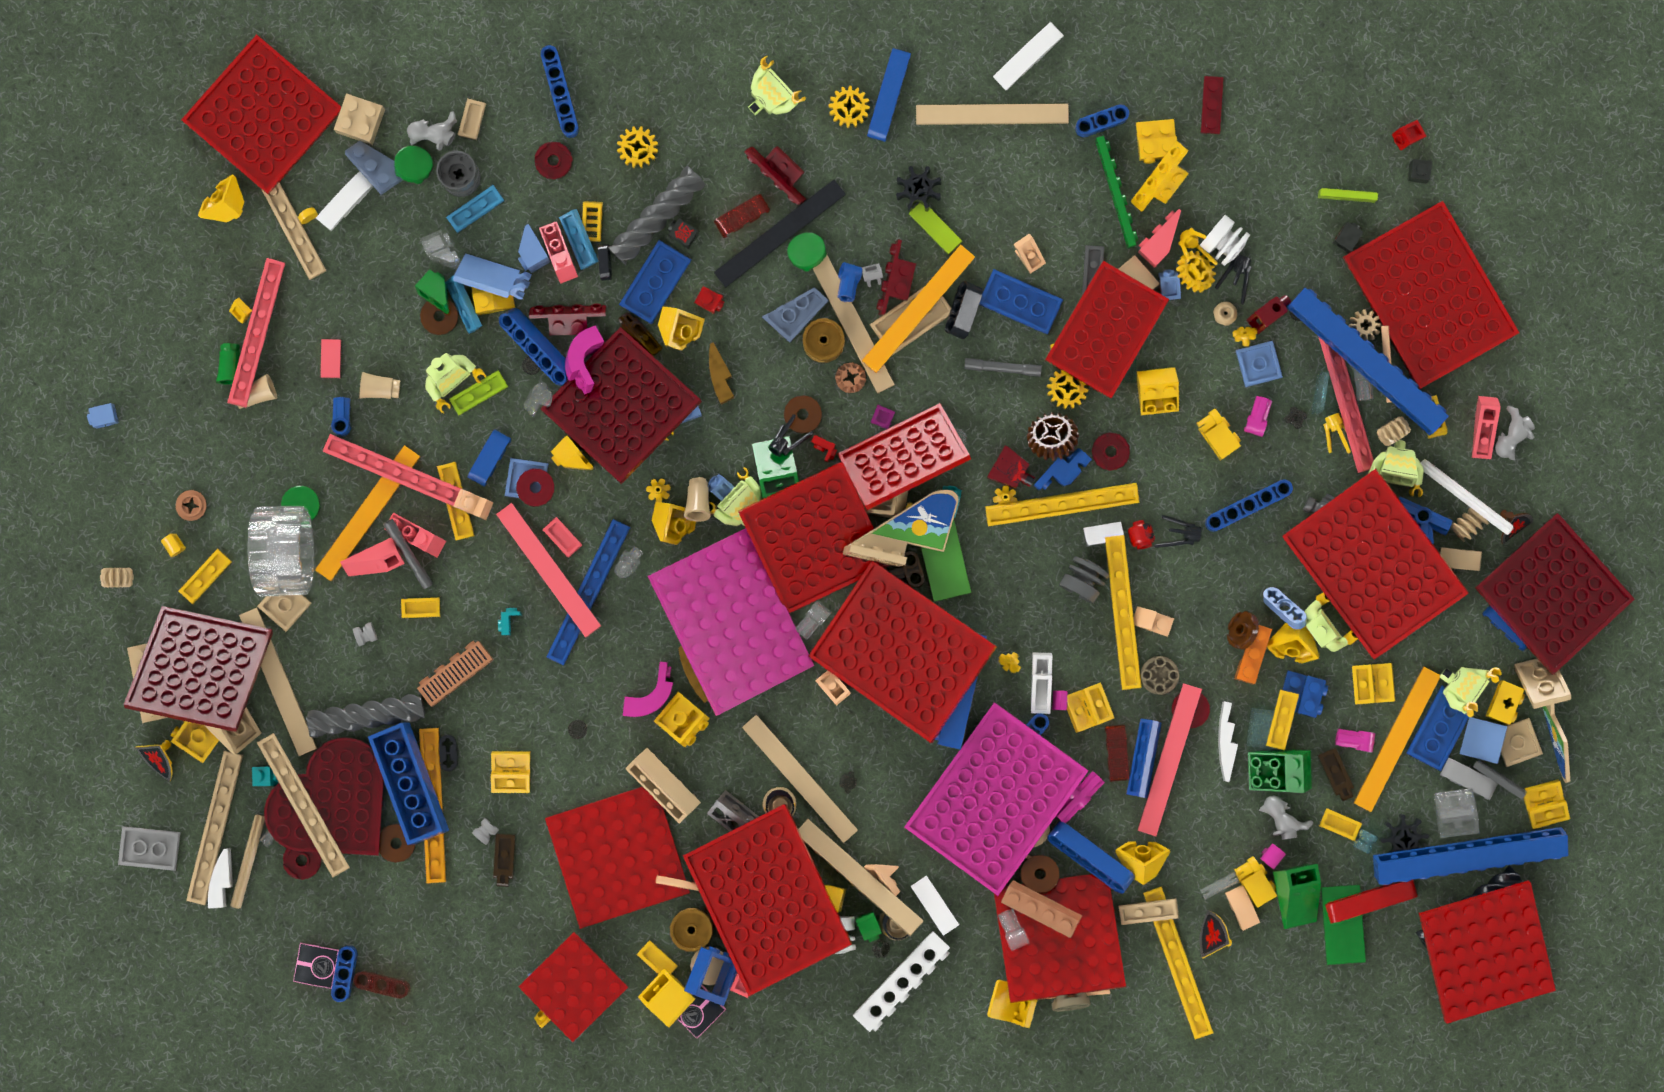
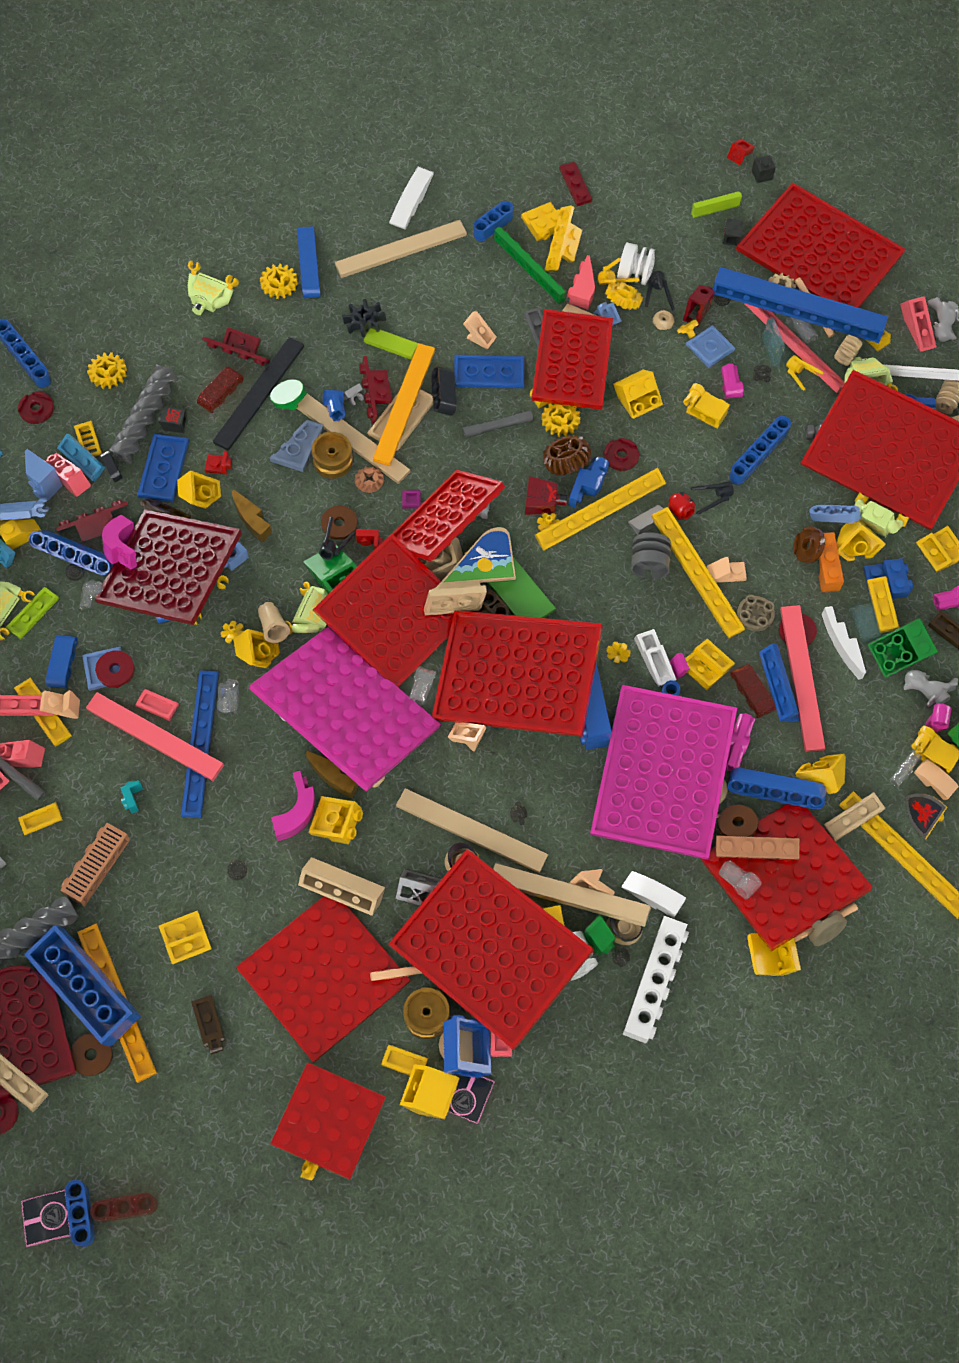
camera: 25 degrees left, 20 degrees down
(443, 753) = (110, 945): black beam -> none
(485, 831) = (179, 1003): light grey wheel -> none
(570, 456) = (137, 629): yellow slope -> none
(720, 487) = (289, 605): medium blue bracket -> none

